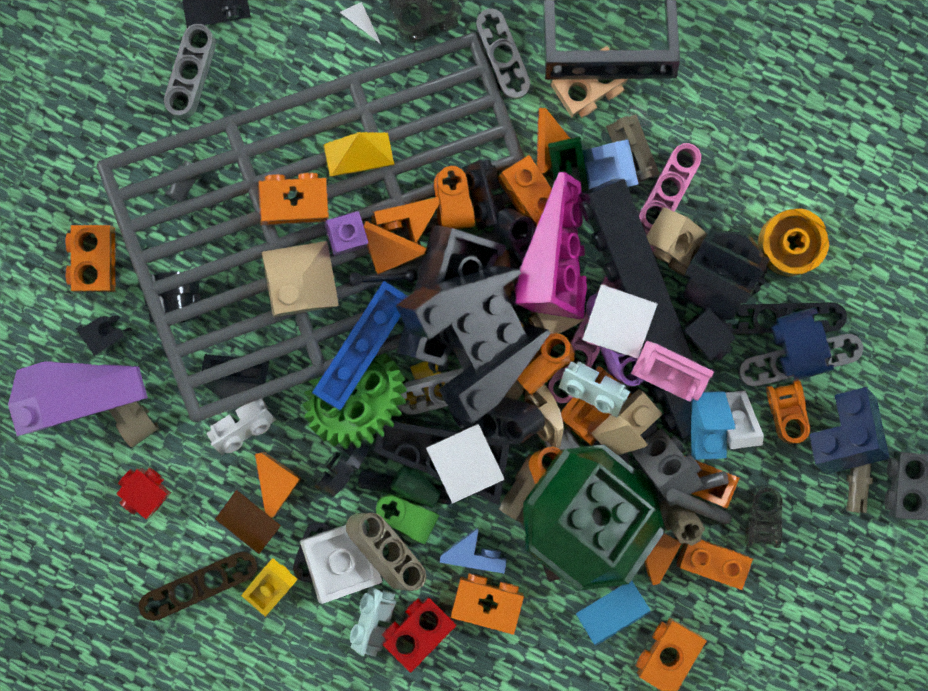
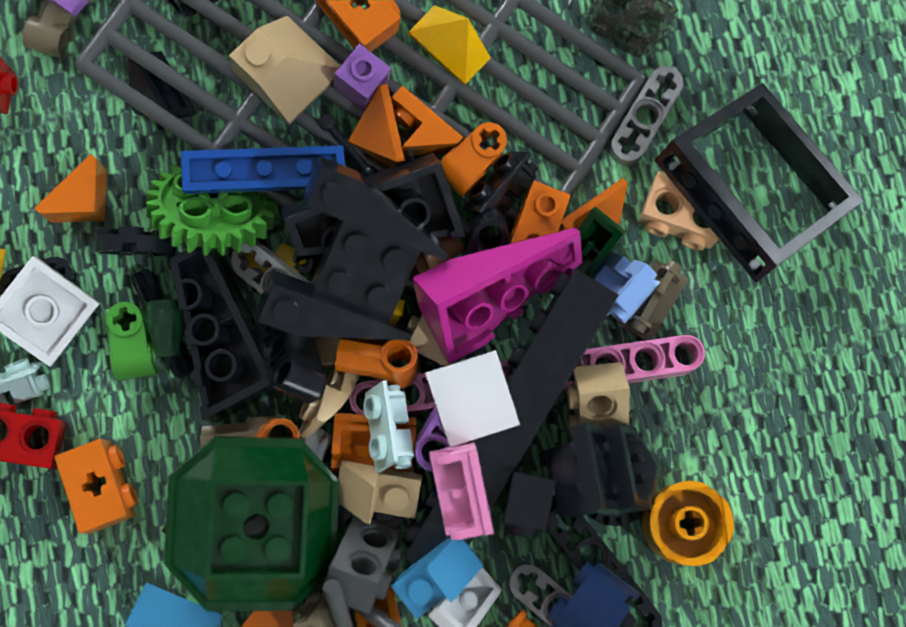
camera: 55 degrees right, 10 degrees down
(229, 436) = (99, 124): white hinge -> none
(247, 522) = (22, 196): reddish brown sticker -> none
(399, 555) = (79, 364): dark tan beam -> none
(463, 554) = (132, 428): medium blue slope -> none
(465, 463) = (220, 355): white sticker -> none

